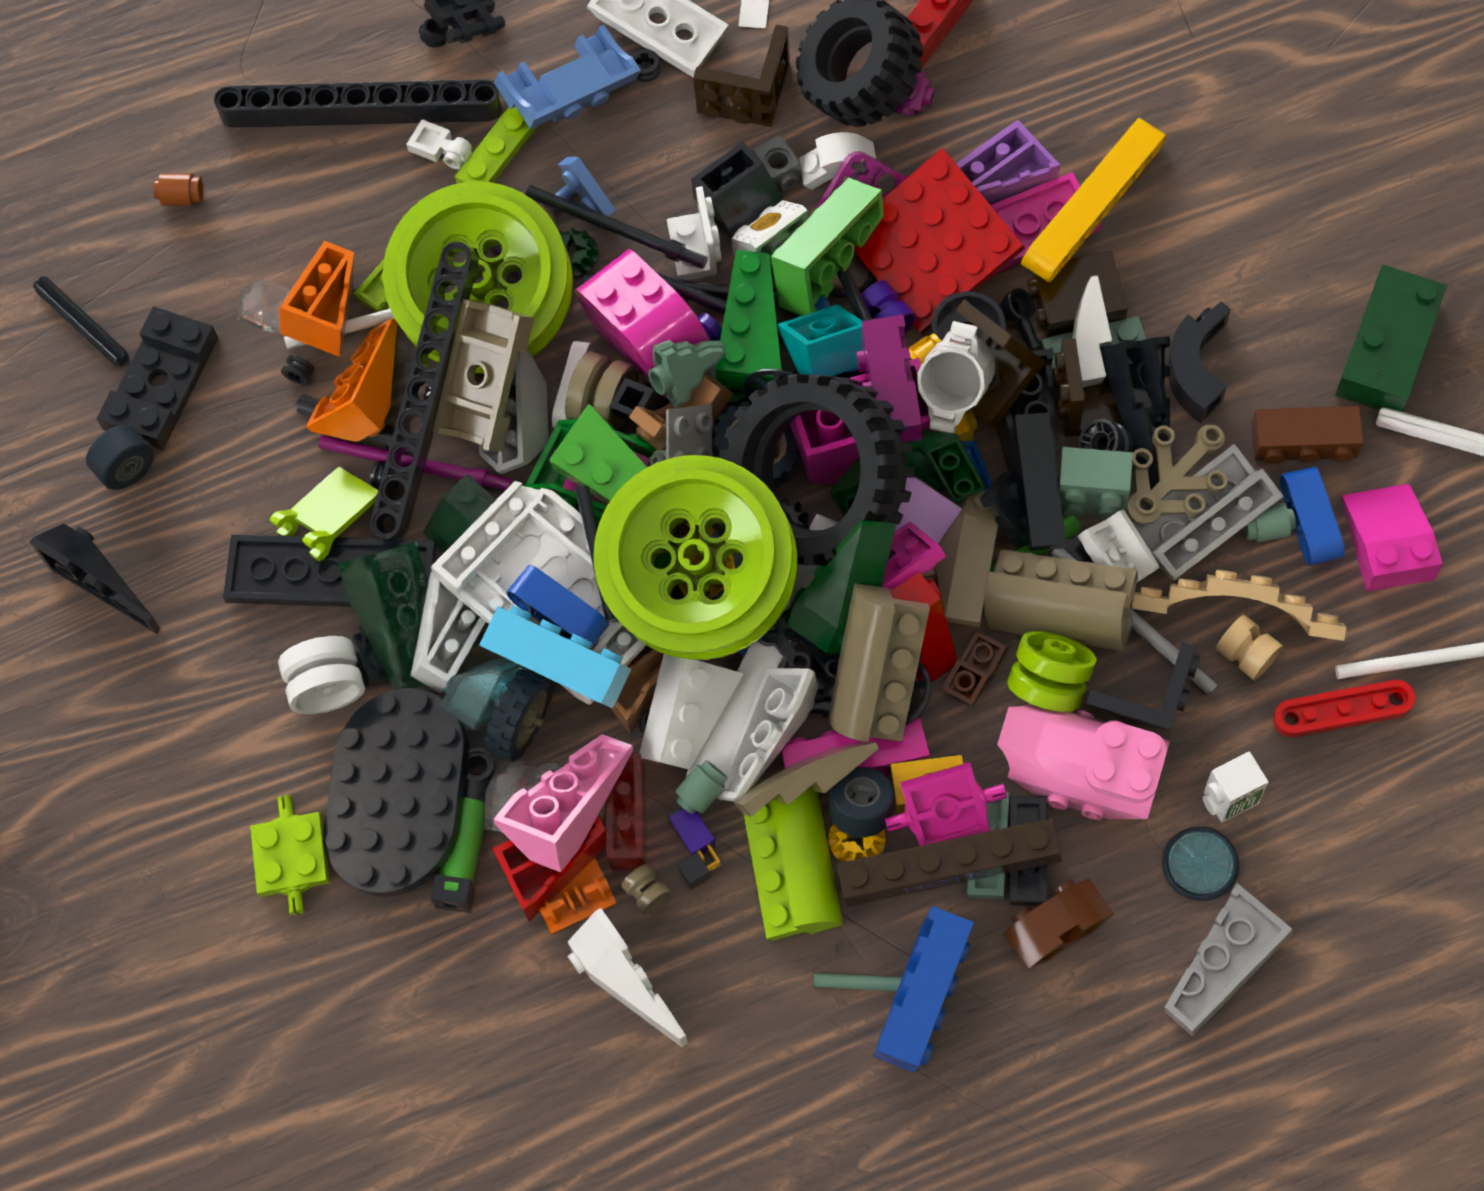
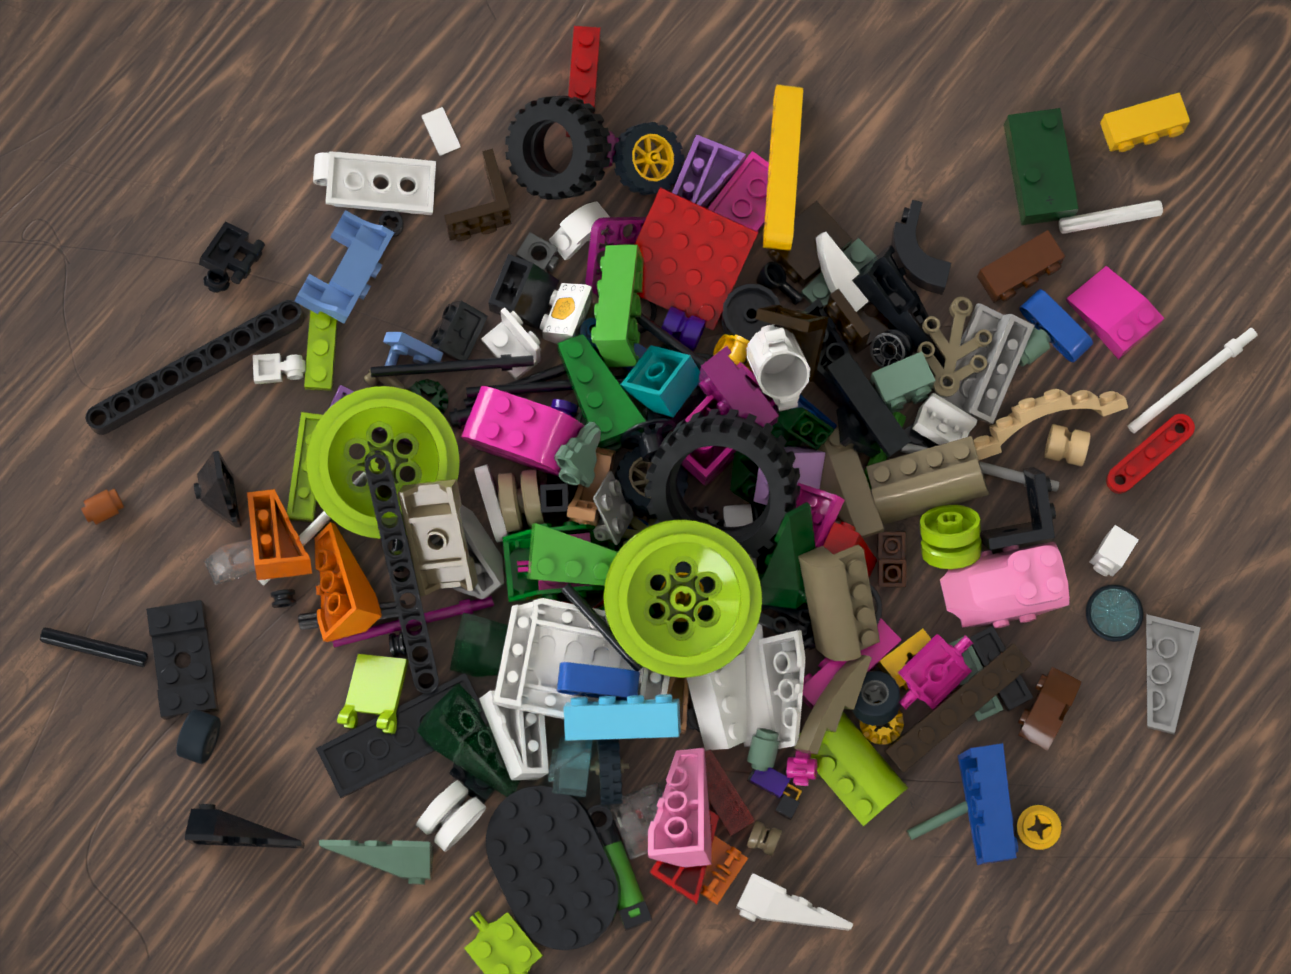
camera: 40 degrees left, 10 degrees up
(244, 691) = (402, 858): none -> sand green wedge
(301, 219) = (217, 489): none -> black wedge
(648, 200) = (458, 330): none -> black bracket
(732, 833) = (801, 768): none -> dark pink gear
(959, 1038) = (1045, 816): none -> yellow gear
(967, 95) = (626, 163): none -> black wheel

